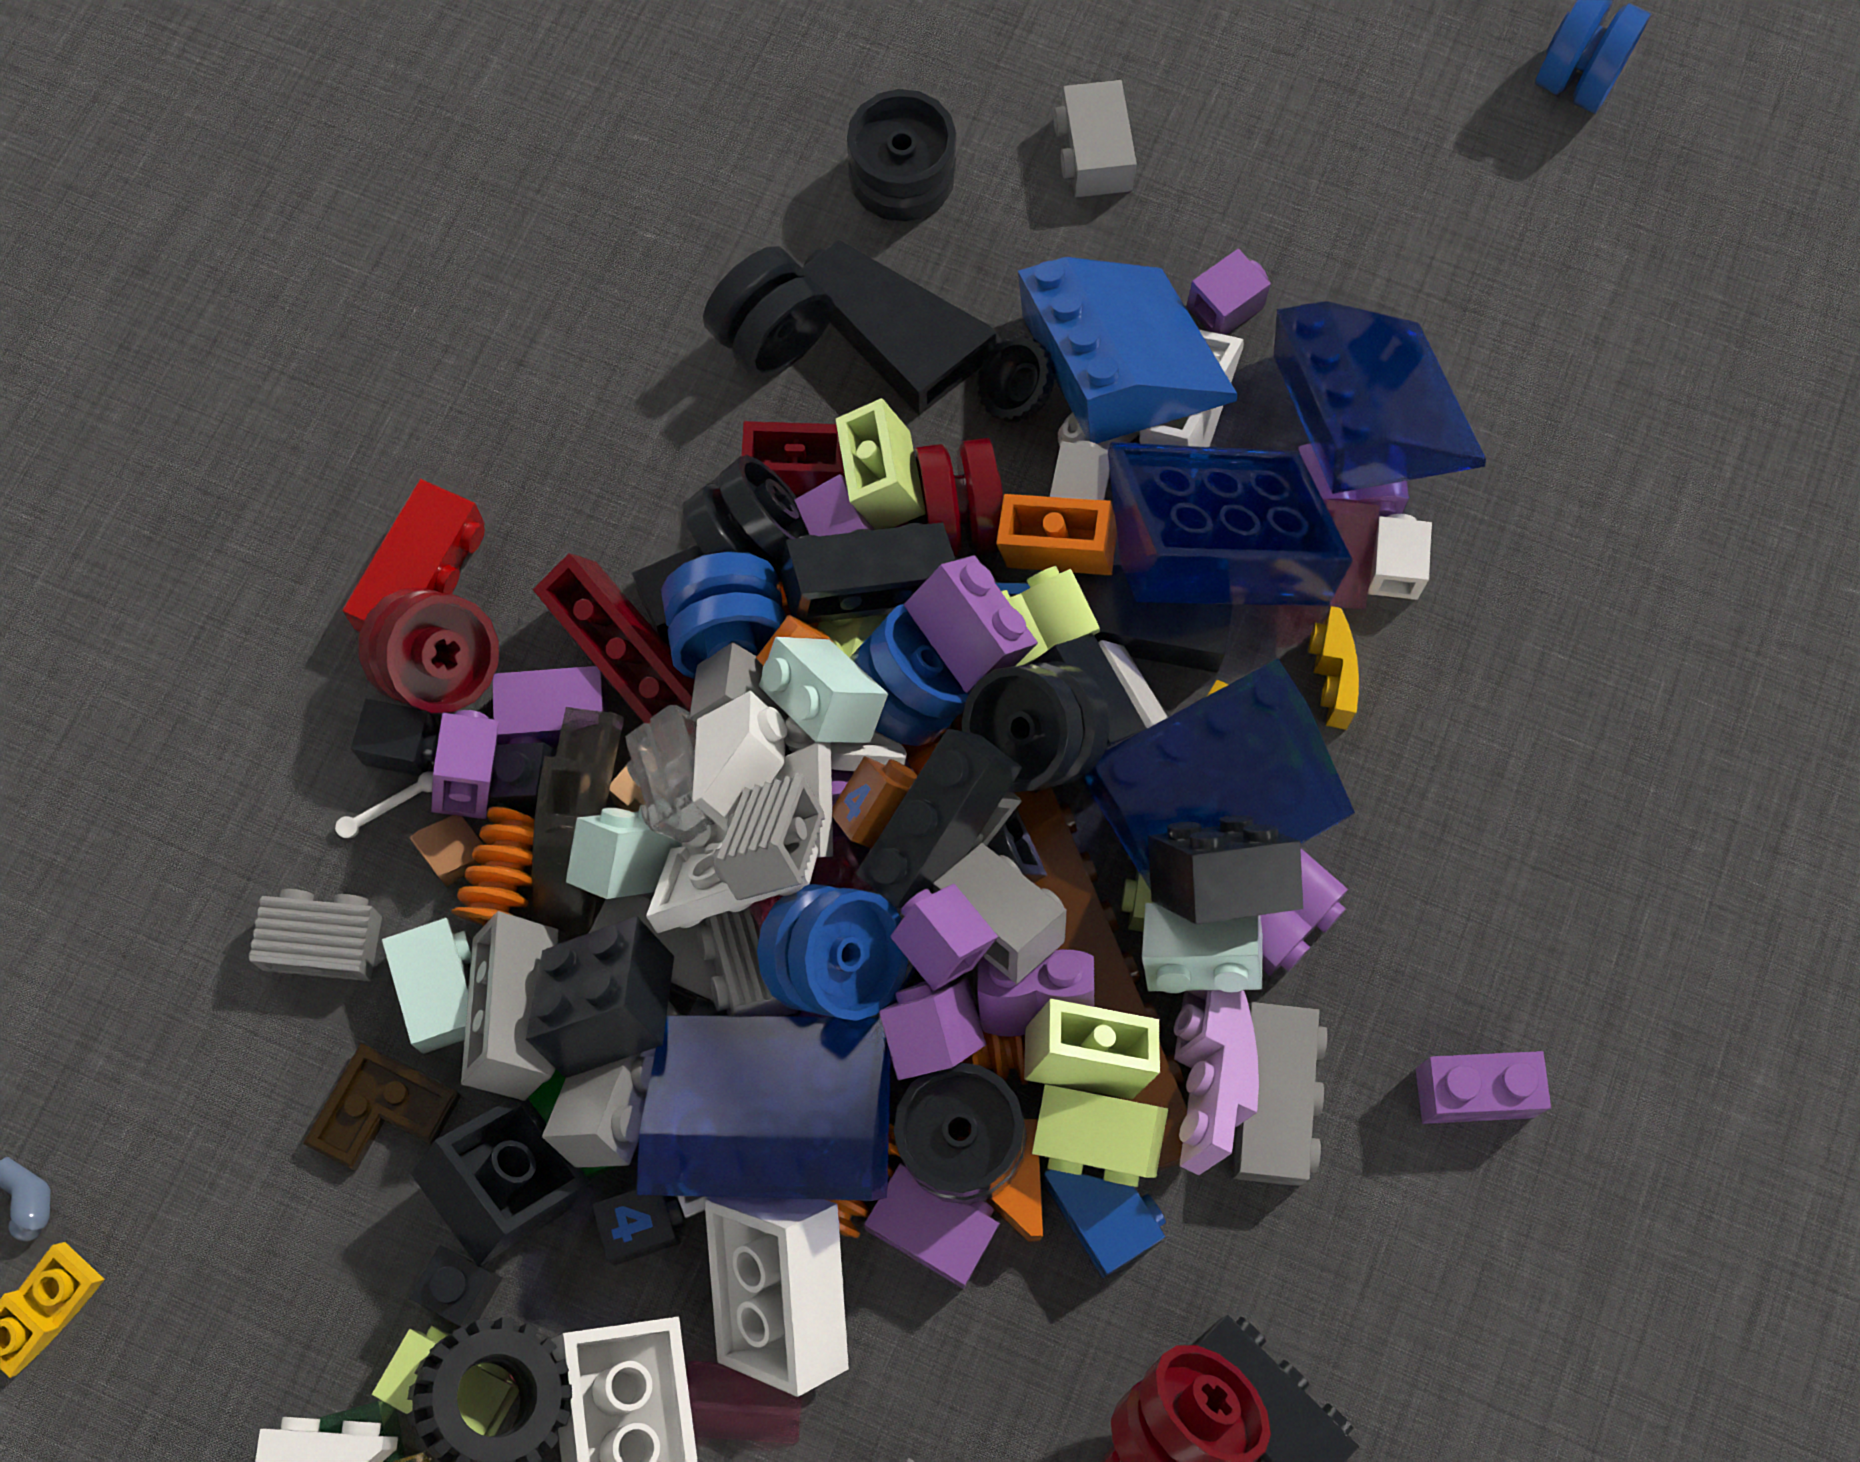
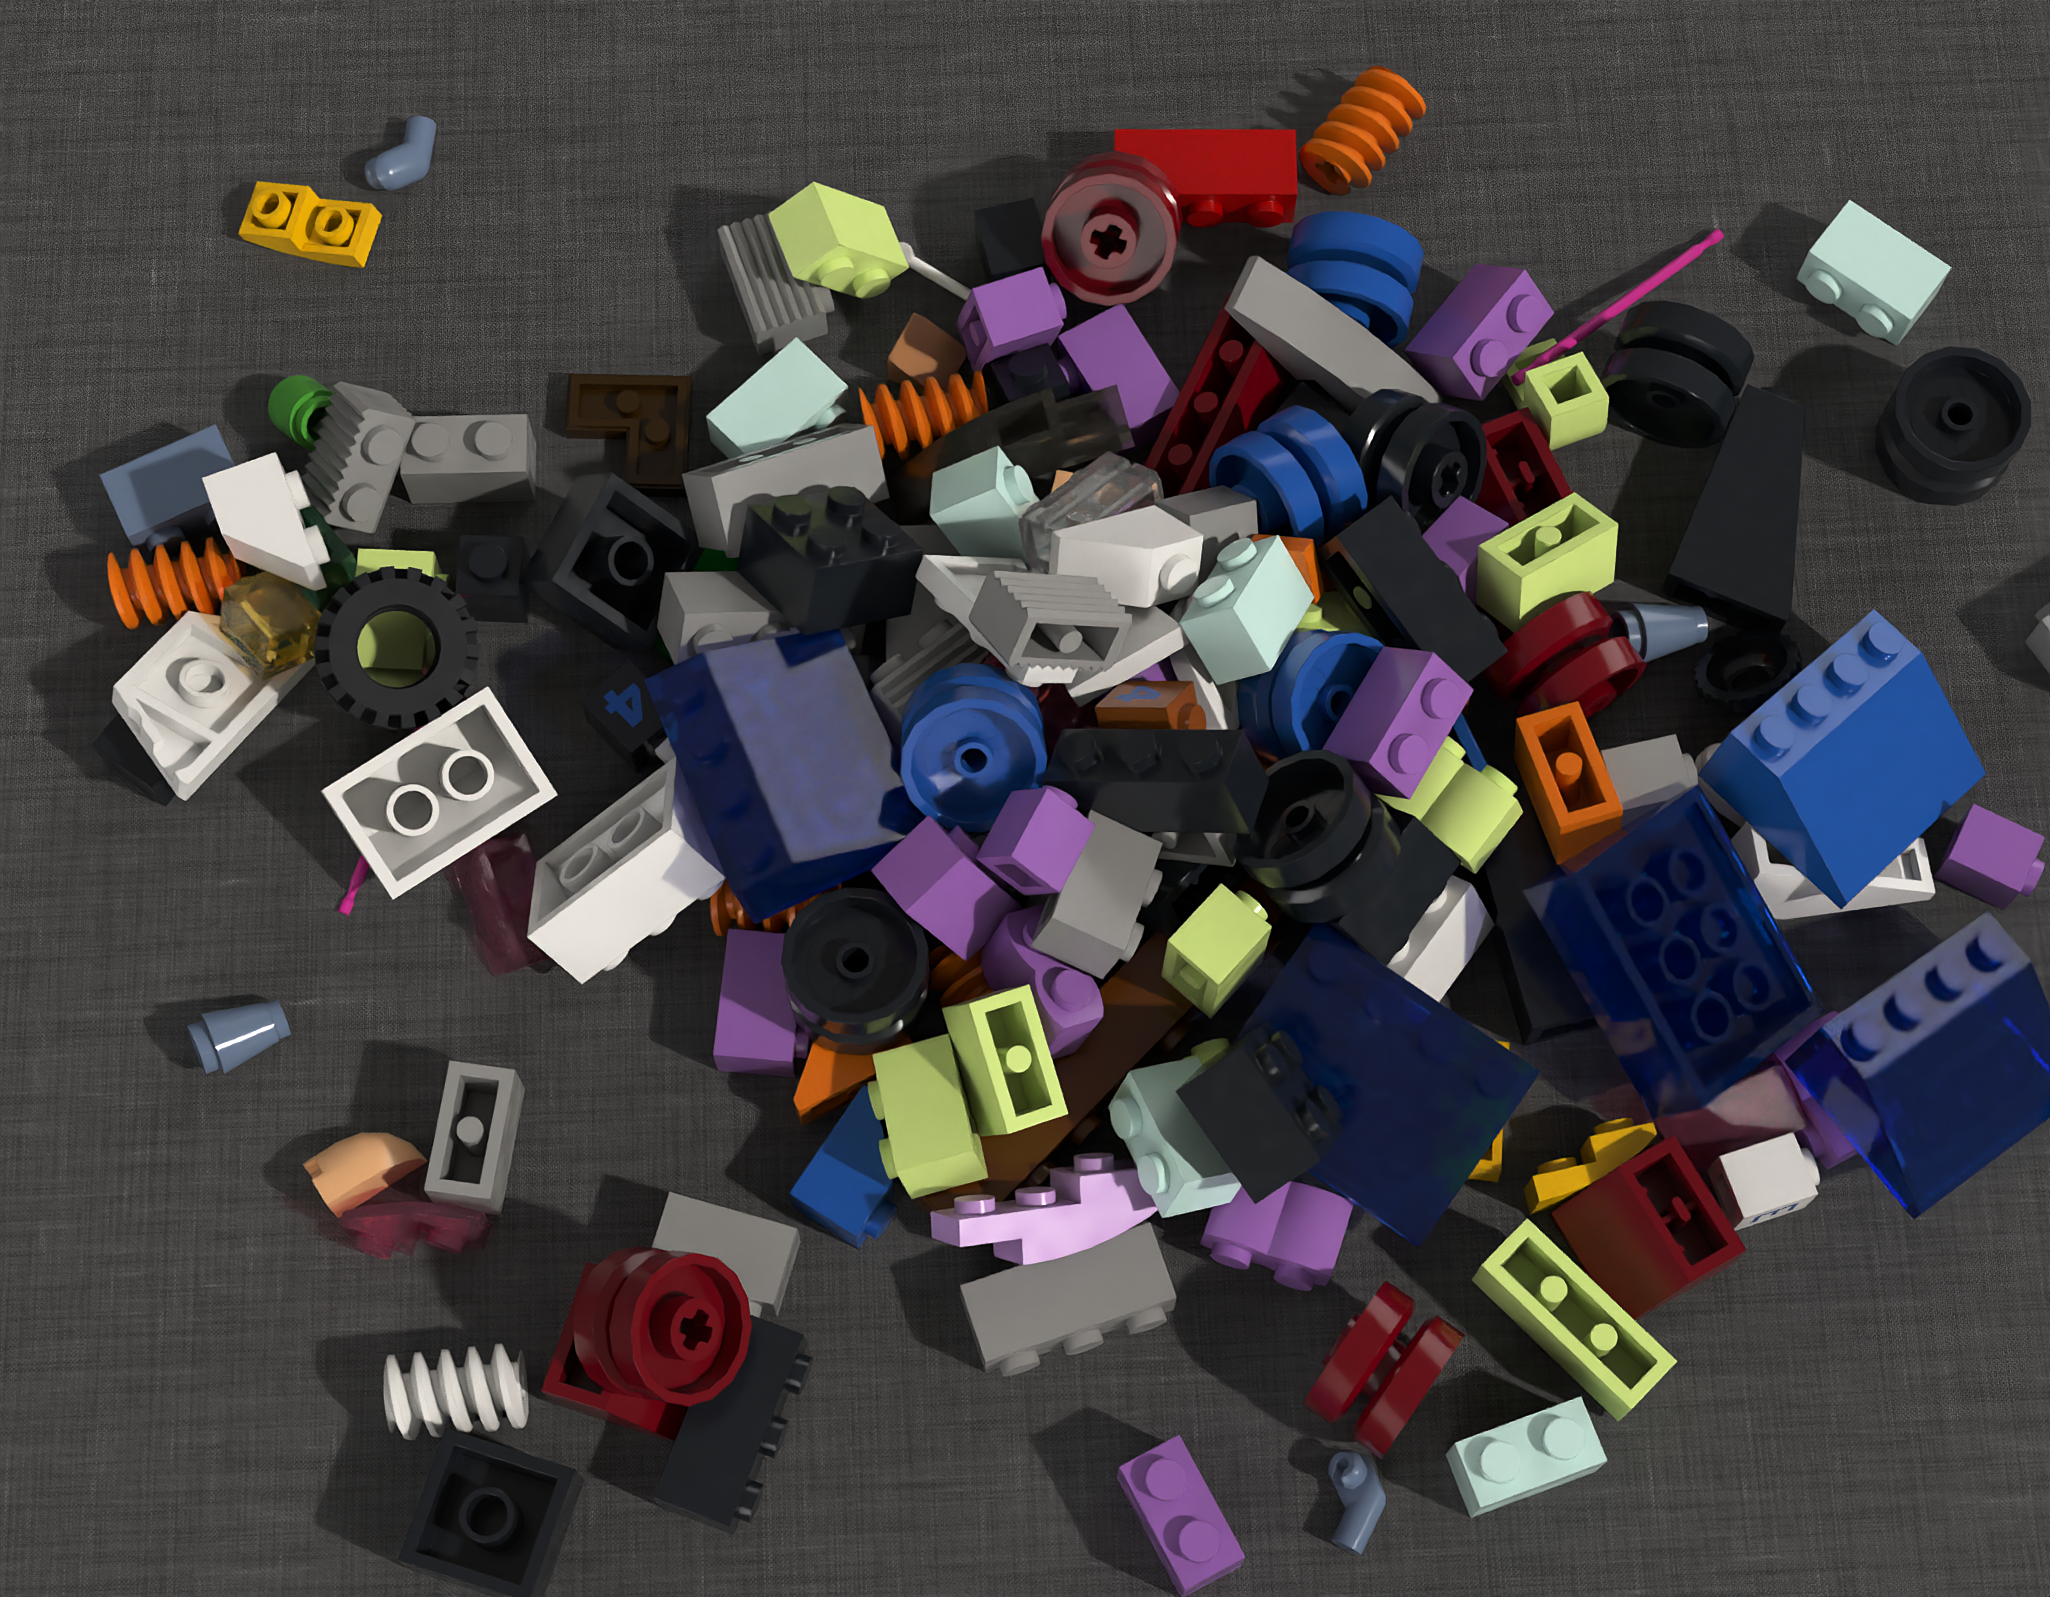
camera: 65 degrees right, 0 degrees up
(219, 1385) = (298, 408): none -> bright green brick
(287, 1358) = (357, 456): none -> light grey brick
(318, 867) = (838, 241): none -> yellowish green brick
(335, 1263) = (470, 459): none -> light grey brick
(444, 434) = (1362, 130): none -> orange piece
(569, 497) = (1360, 268): none -> blue wheel
(614, 539) = (1318, 339): none -> light grey slope
(657, 430) = (1479, 331): none -> medium lavender brick
(686, 331) = (1619, 305): none -> dark pink piece
(745, 393) = (1561, 395): none -> yellowish green brick
(754, 150) = (1872, 273): none -> light aqua brick
(951, 421) = (1659, 628): none -> sand blue cone
(1076, 844) = (1217, 948): none -> yellowish green brick
(1125, 1348) = (749, 1245): none -> light grey brick
(1409, 650) = (1649, 1230): none -> dark red slope
(1439, 883) = (1382, 1368): none -> dark red wheel
(1451, 733) = (1573, 1320): none -> yellowish green brick
(1514, 949) = (1361, 1497): none -> sand blue arm
(1536, 816) = (1526, 1457): none -> light aqua brick

